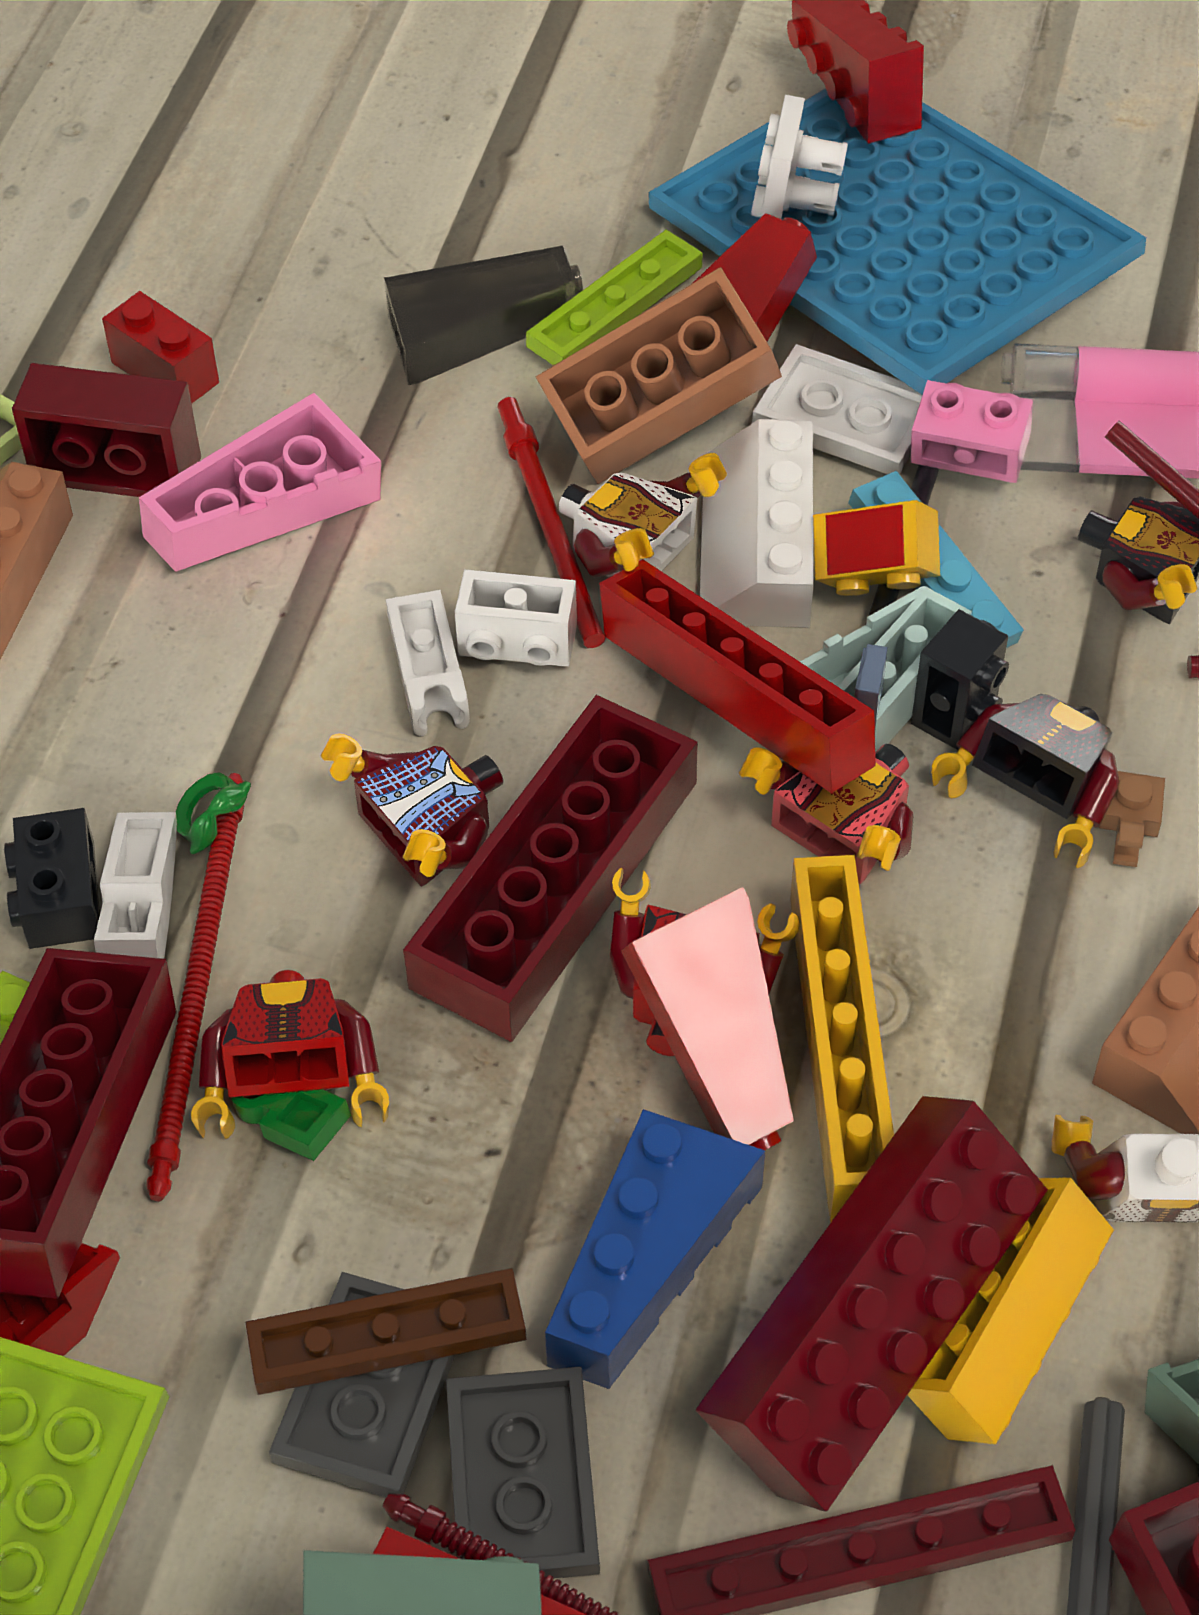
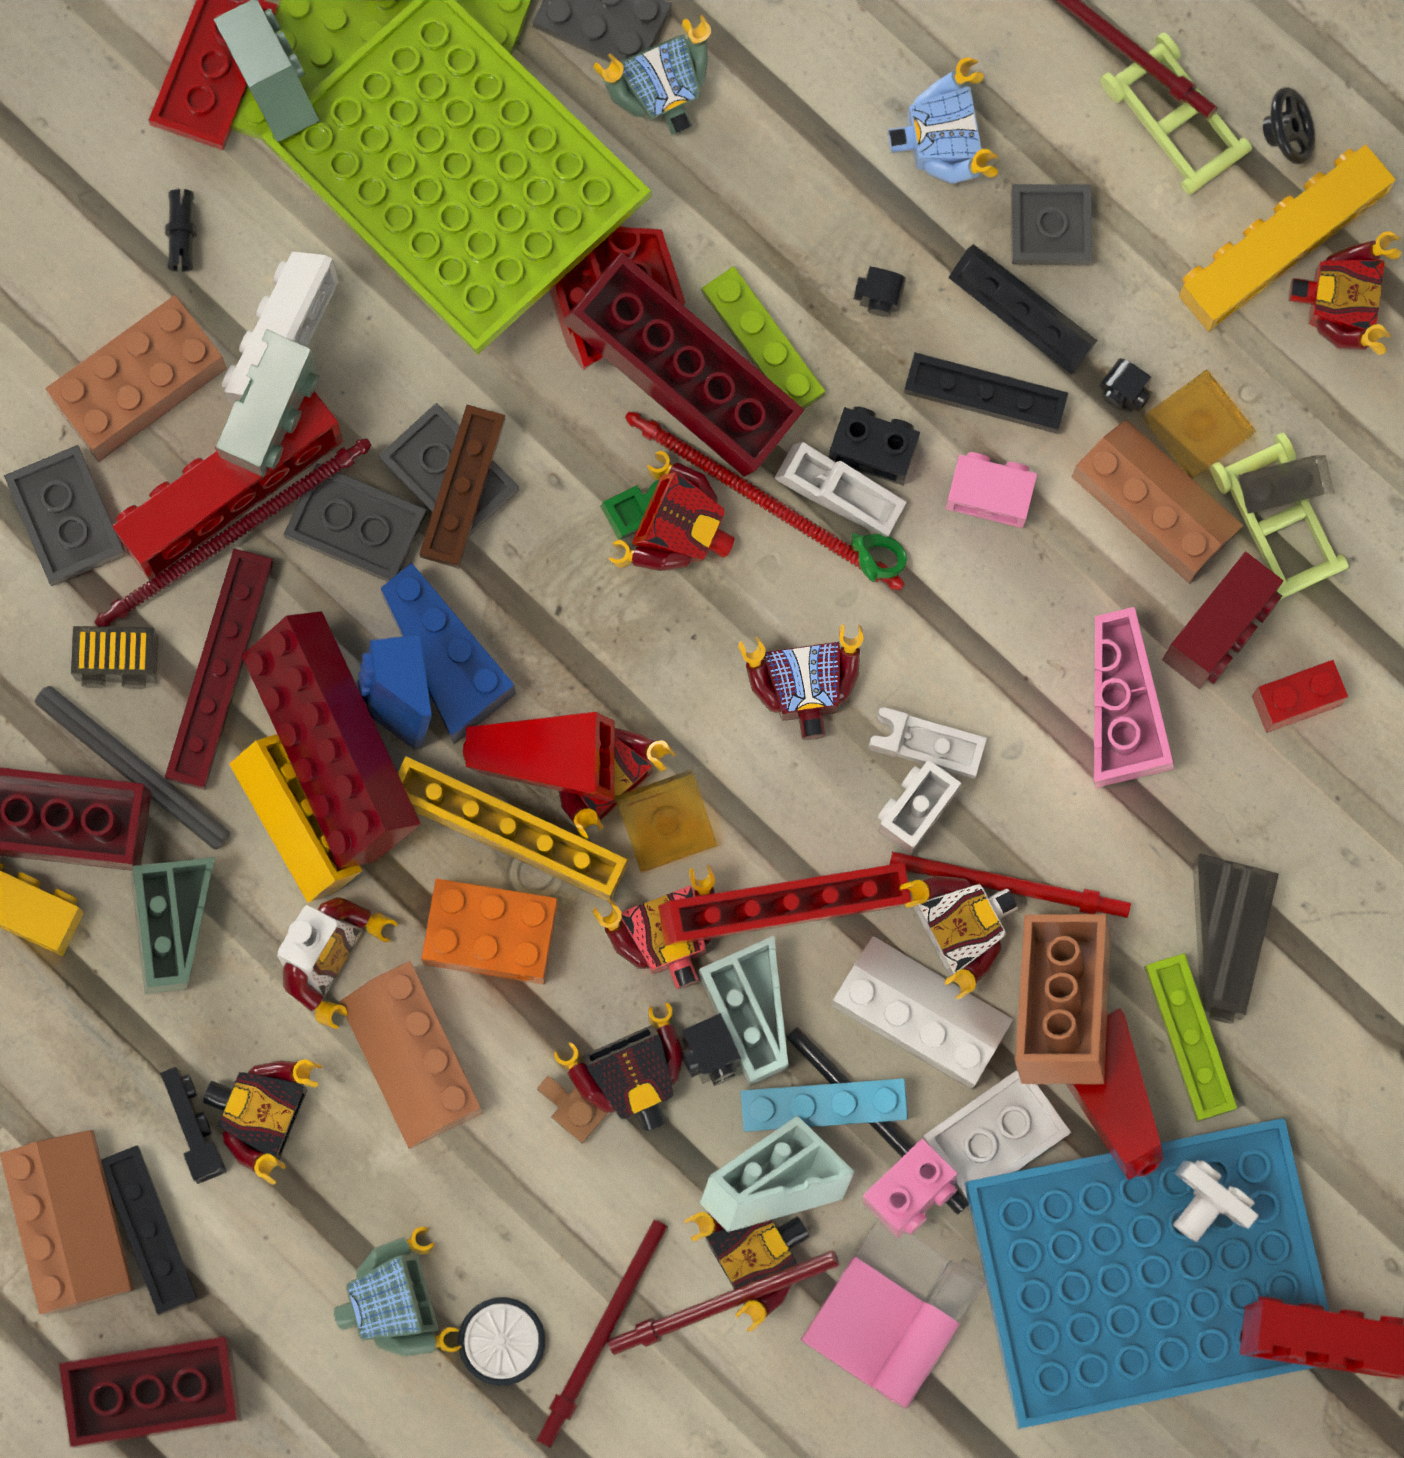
camera: 115 degrees right, 25 degrees up
(55, 723) = (991, 489): none -> bright pink brick
(551, 867) = (716, 731): dark red brick -> none
(705, 863) = (666, 821): none -> clear yellow plate
(743, 1209) = (396, 687): none -> blue slope
(871, 677) = (713, 967): sand blue tile -> none
(876, 546) = (845, 1062): brick -> none
(989, 995) = (489, 931): none -> orange piece
(1063, 545) = (776, 1178): none -> light aqua wedge

